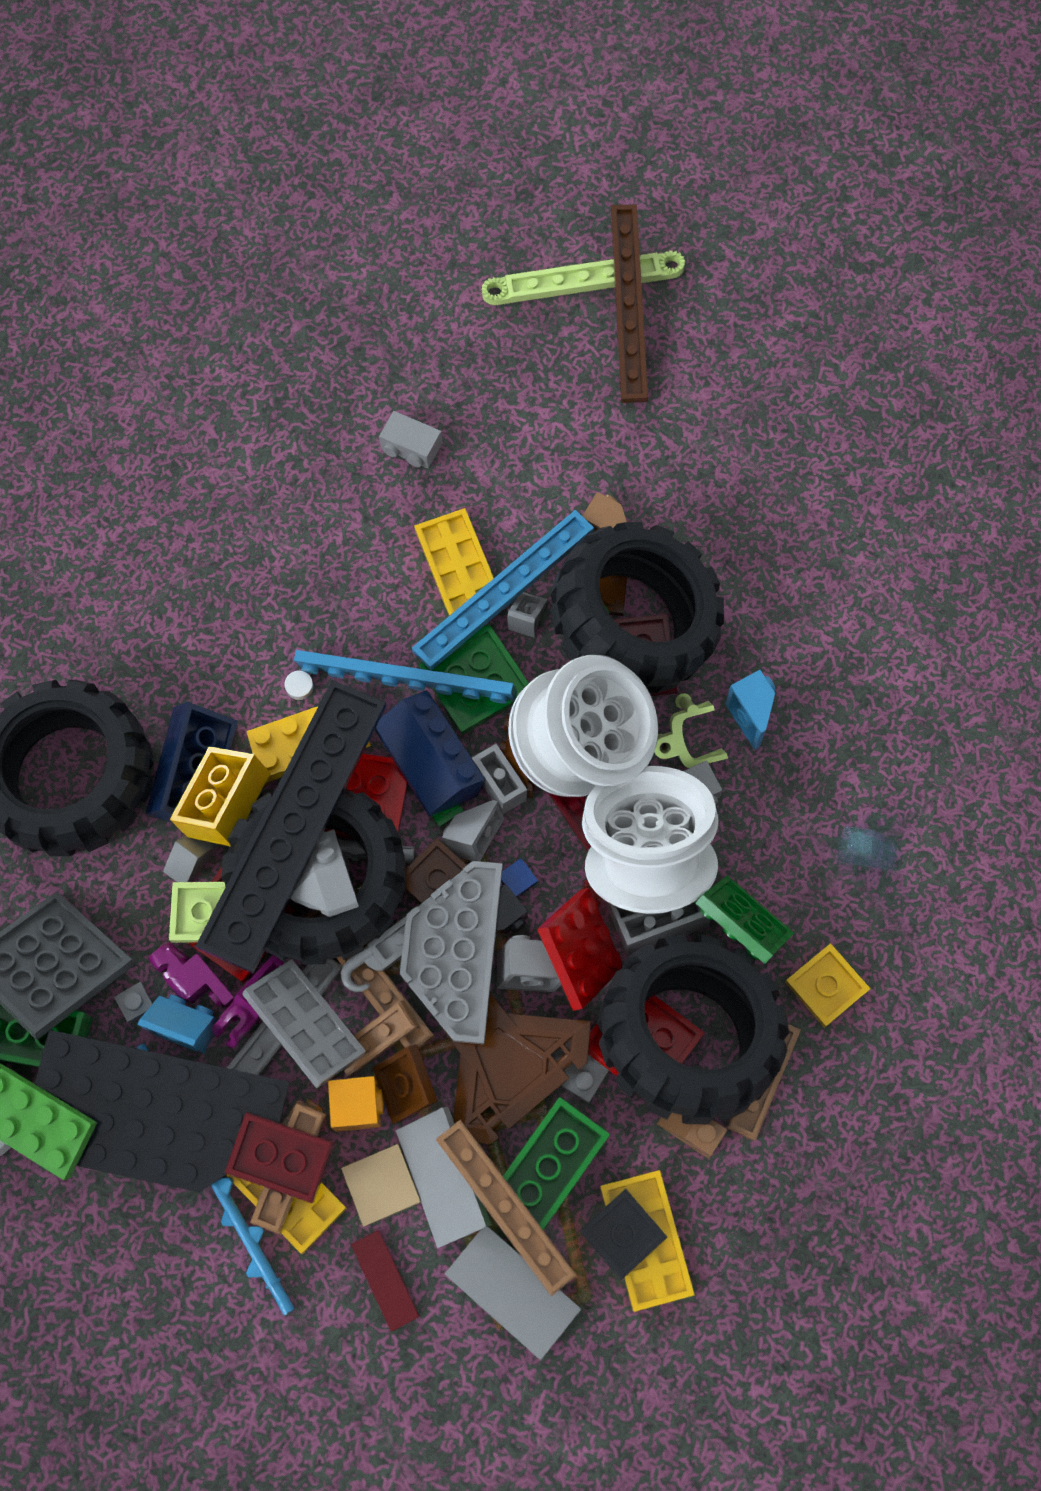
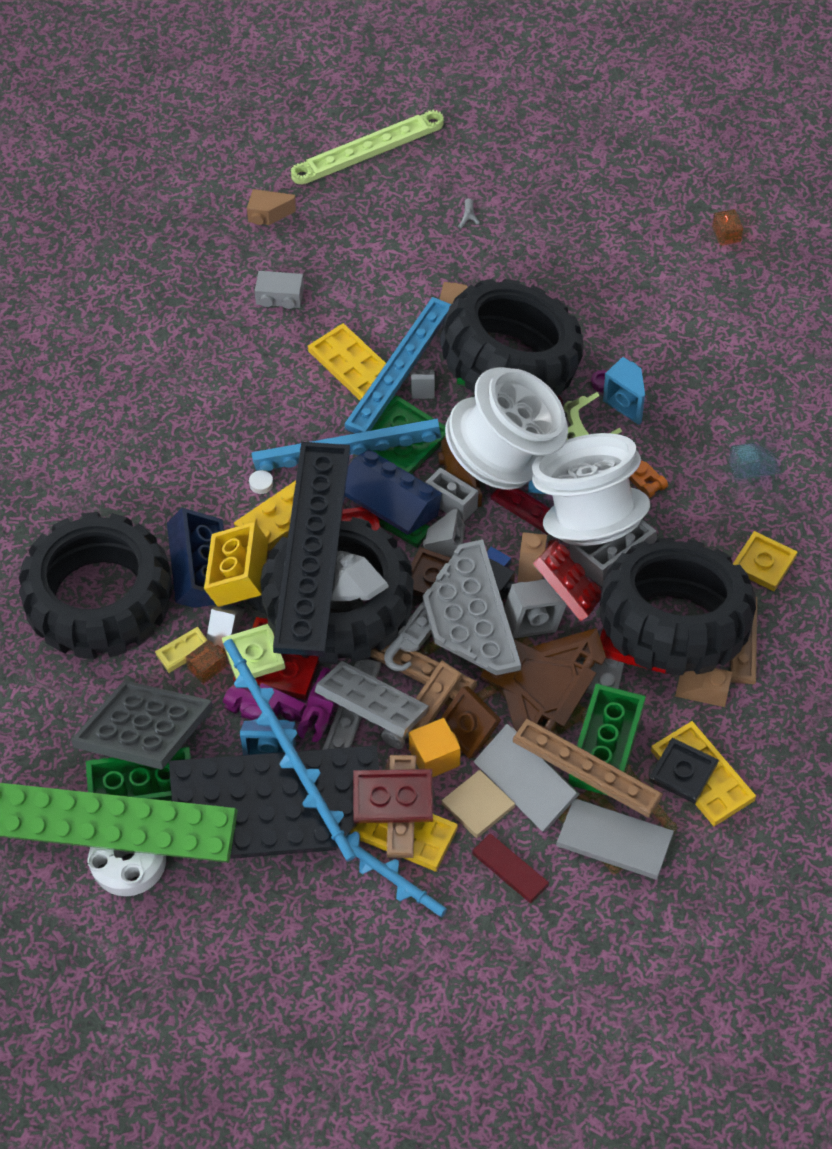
camera: 20 degrees left, 15 degrees down
(133, 874) = (174, 653): none -> light yellow plate
(134, 1002) = (222, 740): light grey plate -> none
(151, 899) = (206, 661): none -> clear orange brick
(181, 1075) = (291, 759): none -> dark azure plant
(440, 326) = (269, 207): none -> medium nougat slope
(560, 887) = (531, 548): none -> medium nougat slope
(629, 304) = (413, 152): reddish brown plate -> none
(666, 402) = (469, 213): none -> light grey bar
(731, 675) = (598, 380): none -> magenta tile
(732, 817) = (644, 474): none -> orange plate
(744, 919) = (682, 528): green plate -> none
(961, 518) = (727, 227): none -> clear orange brick

